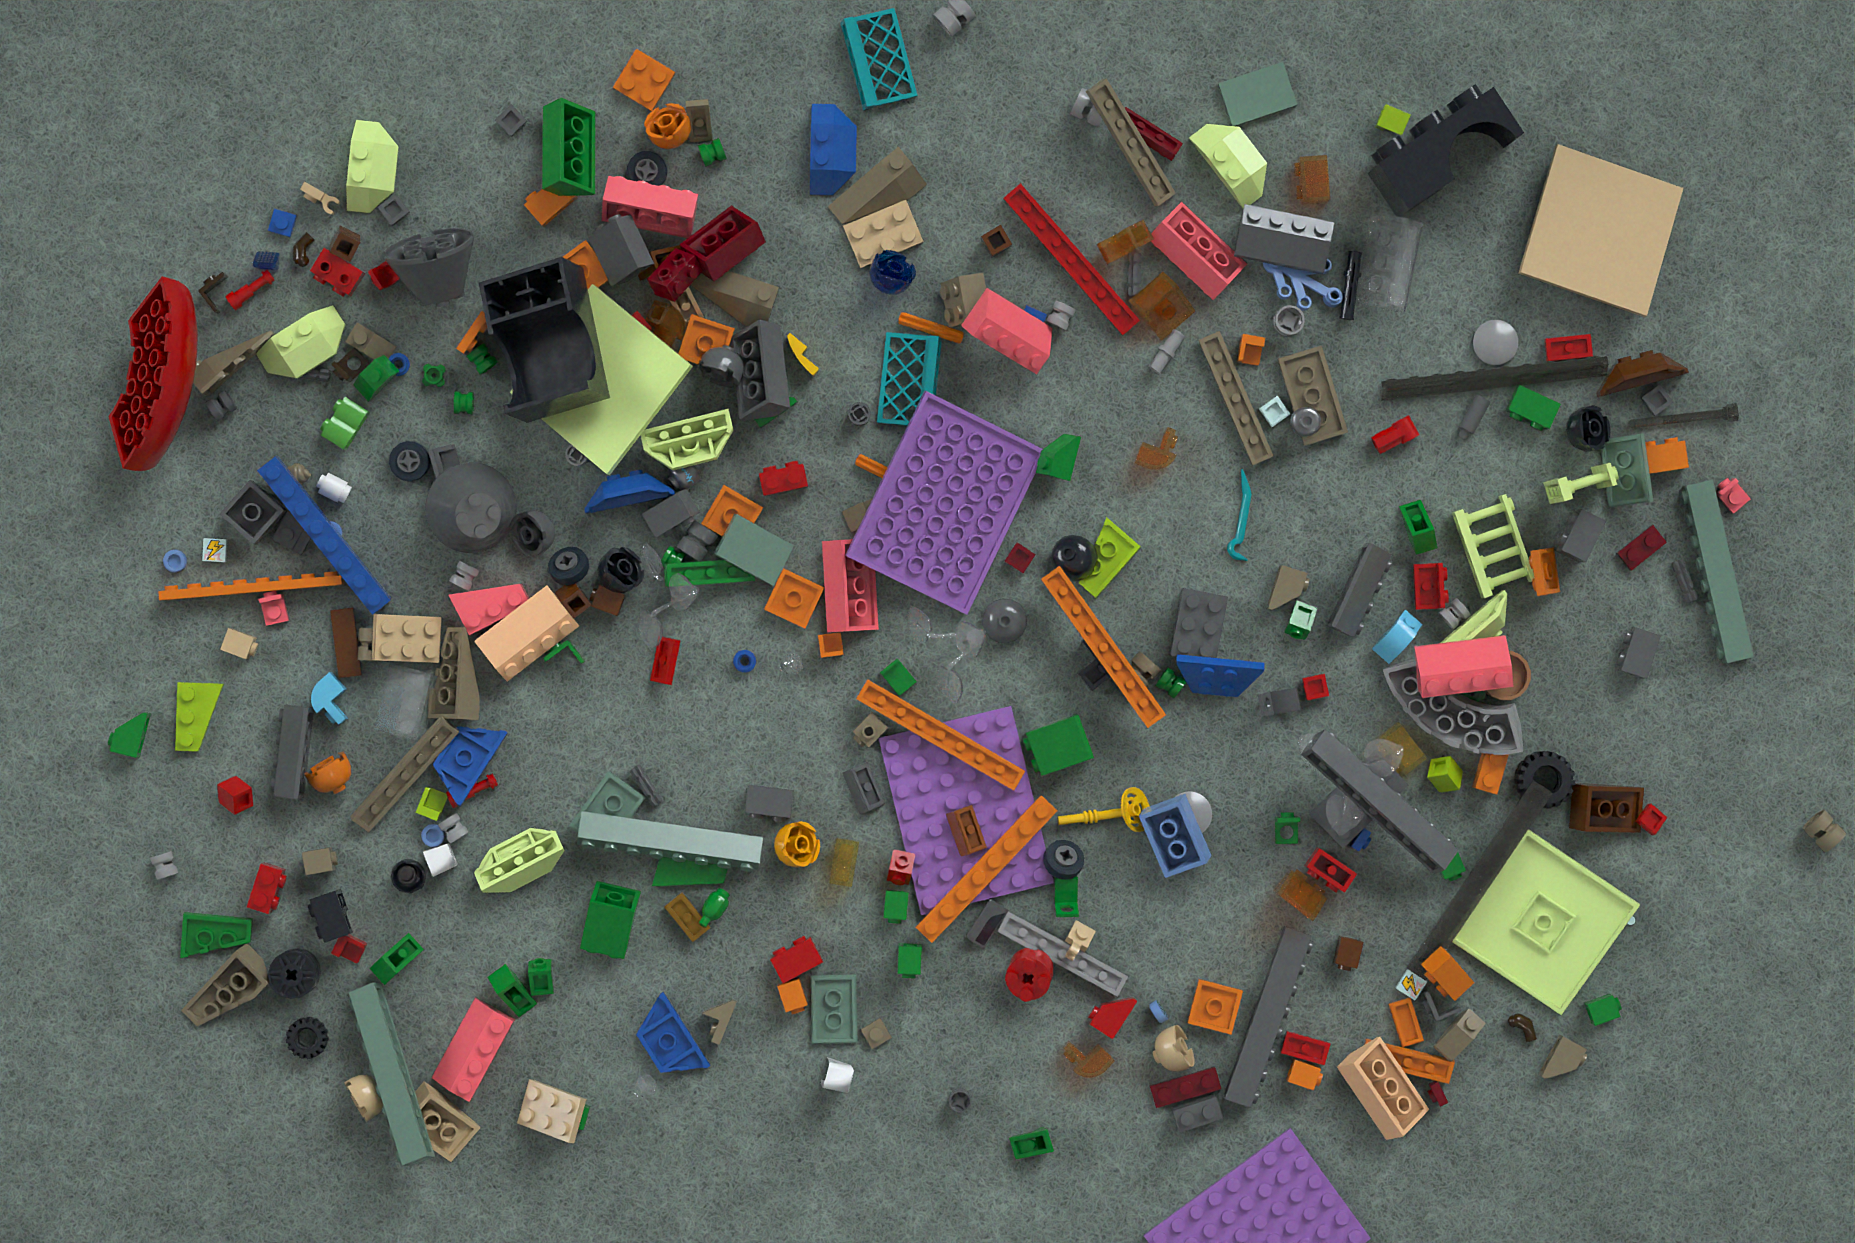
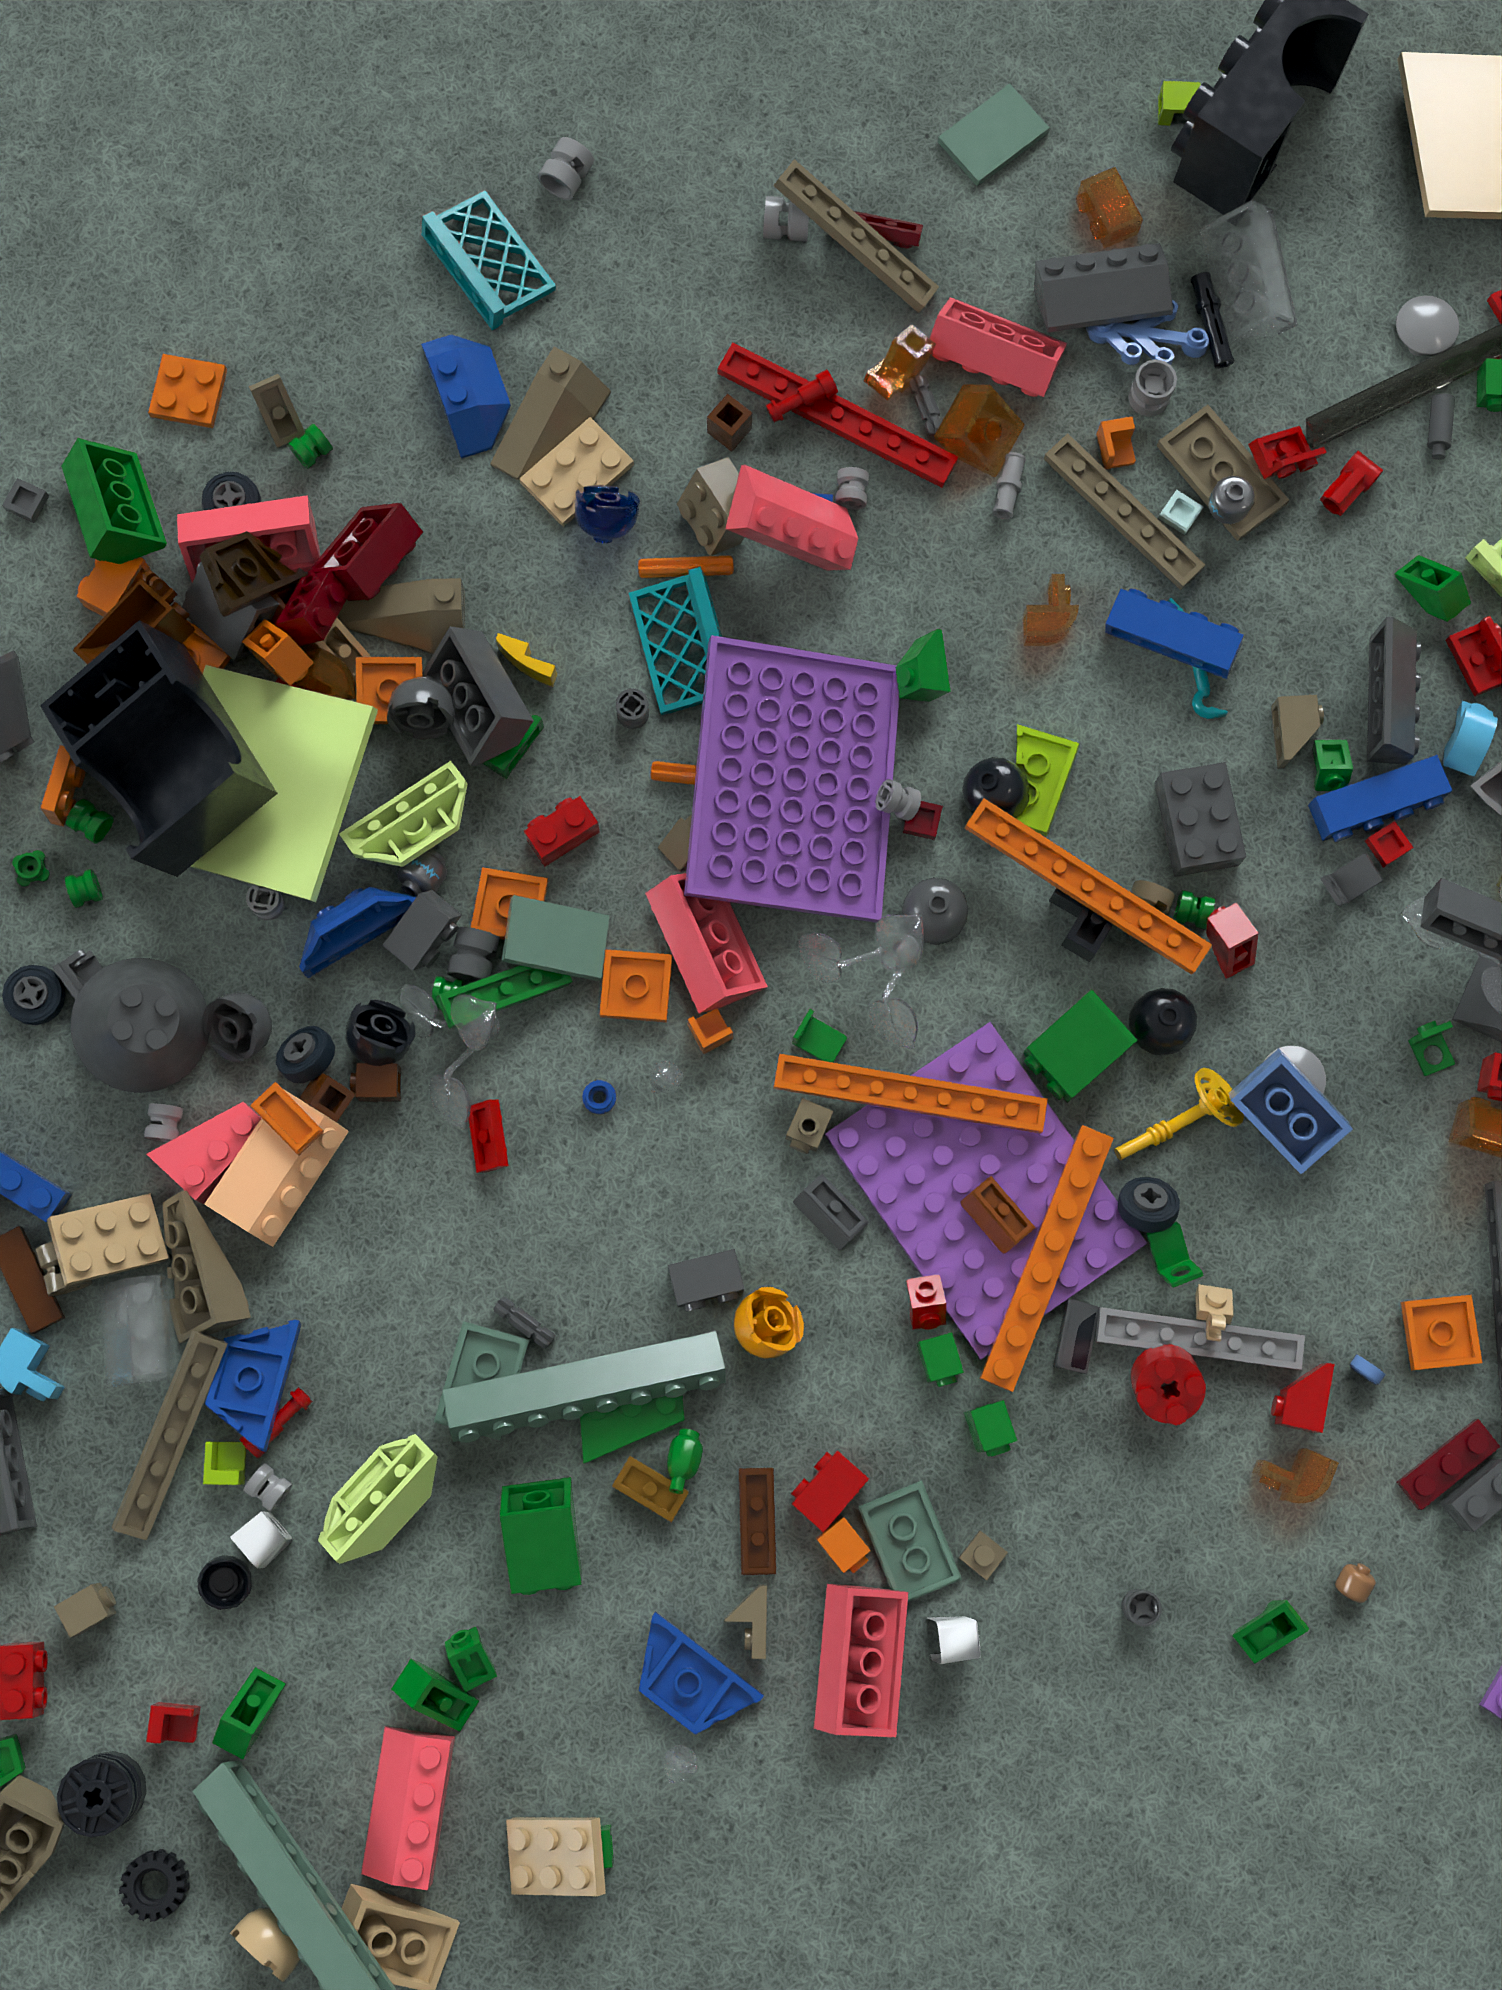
camera: 25 degrees left, 10 degrees down
(330, 774) = (62, 1476): orange cylinder -> none
(330, 915) = (125, 1684): black brick -> none
(432, 835) = (241, 1509): medium blue tile -> none
(544, 607) = (287, 1118): none -> orange tile
(559, 237) = (140, 603): none -> reddish brown piece
(559, 647) = (332, 1173): green bracket -> none
(639, 240) = (245, 572): none -> dark brown wing
(641, 297) = (278, 652): none -> orange brick
(668, 126) = (240, 432): orange cylinder -> none
(745, 960) = (757, 1521): none -> reddish brown tile
(777, 1067) = (861, 1661): none -> coral slope
(844, 862) = (844, 1323): clear yellow brick -> none
(1007, 541) = (901, 801): none -> light grey wheel
(1066, 239) = (806, 394): none -> red piece
(1097, 1135) = (1355, 1582): none -> medium nougat piece
(1121, 746) = (1163, 1021): none -> black cylinder
(1172, 1050) = (1411, 1417): tan cylinder -> none
(1185, 712) = (1232, 939): none -> red slope
(1218, 675) = (1258, 871): blue wing -> none
(1232, 496) = (1174, 633): none -> blue brick
(1233, 160) = (995, 223): yellowish green wedge -> none
(1321, 655) = (1380, 798): none -> blue brick
(1357, 399) = (1284, 453): none -> red bracket

